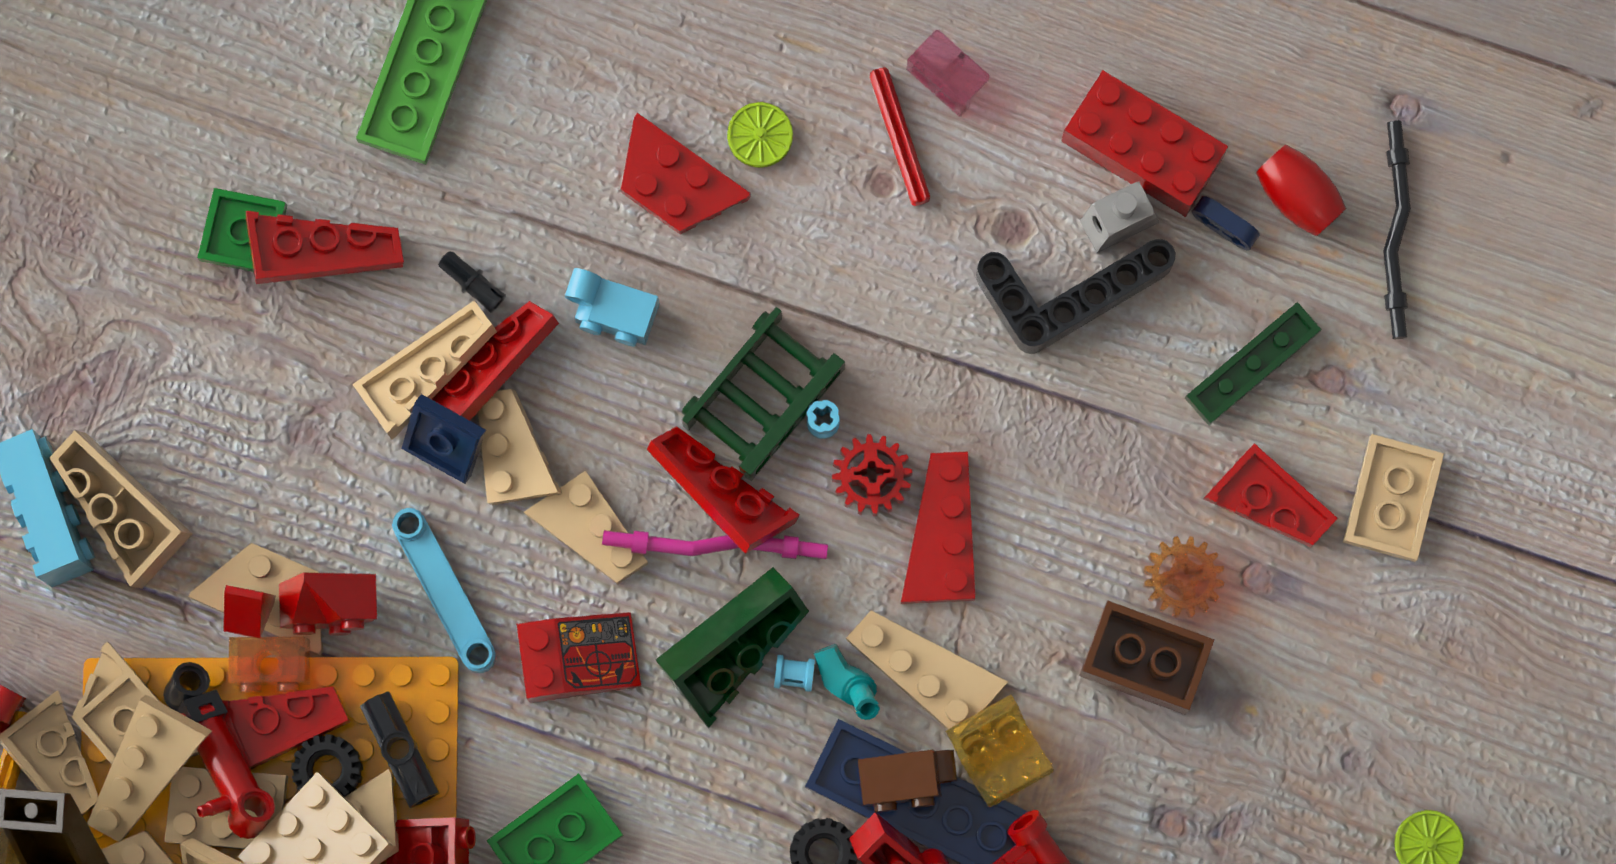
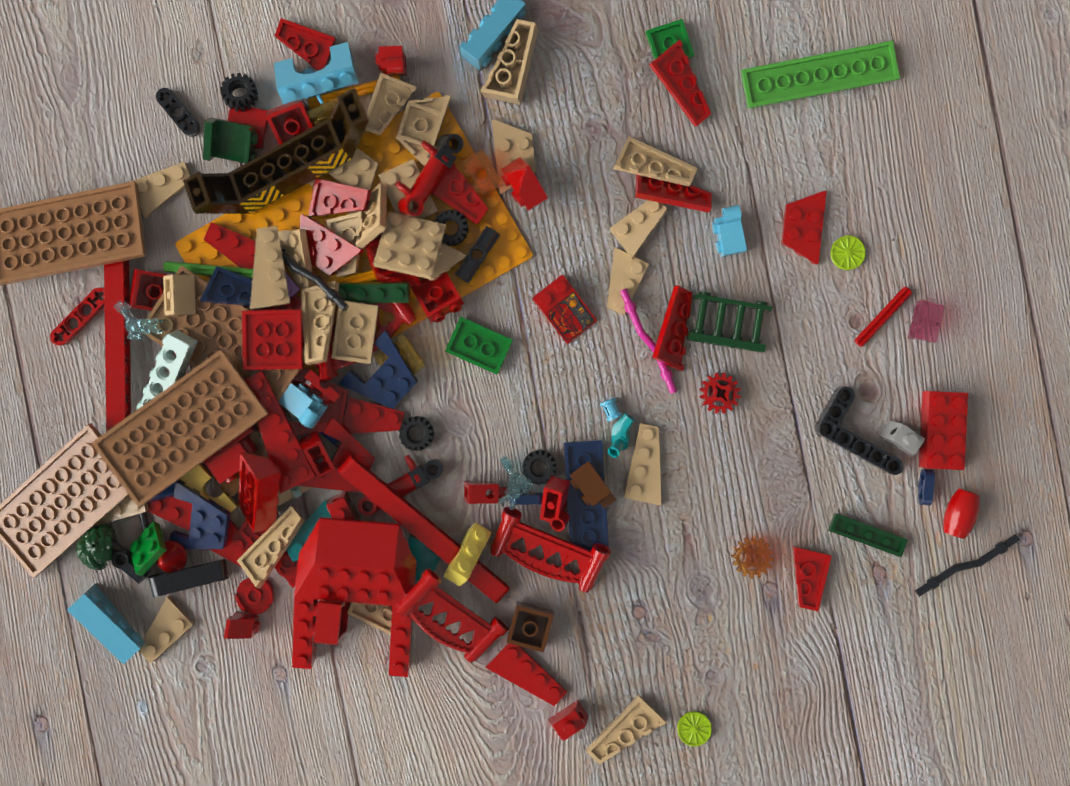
camera: 60 degrees right, 10 degrees up
(145, 763) = (409, 146): tan wing -> none
(246, 611) = (499, 150): red slope -> none
(443, 439) = (626, 192): dark blue tile -> none
(444, 590) = (559, 232): medium azure piece -> none
(472, 281) = (705, 162): black axle -> none
(732, 644) = (609, 374): dark green wedge -> none
(821, 408) = (737, 352): medium azure bush -> none
(942, 542) = (705, 442): red wing -> none
(999, 751) = (627, 520): clear yellow bracket -> none
(1146, 657) = (707, 561): reddish brown brick -> none
(1393, 498) = (841, 630): tan plate -> none

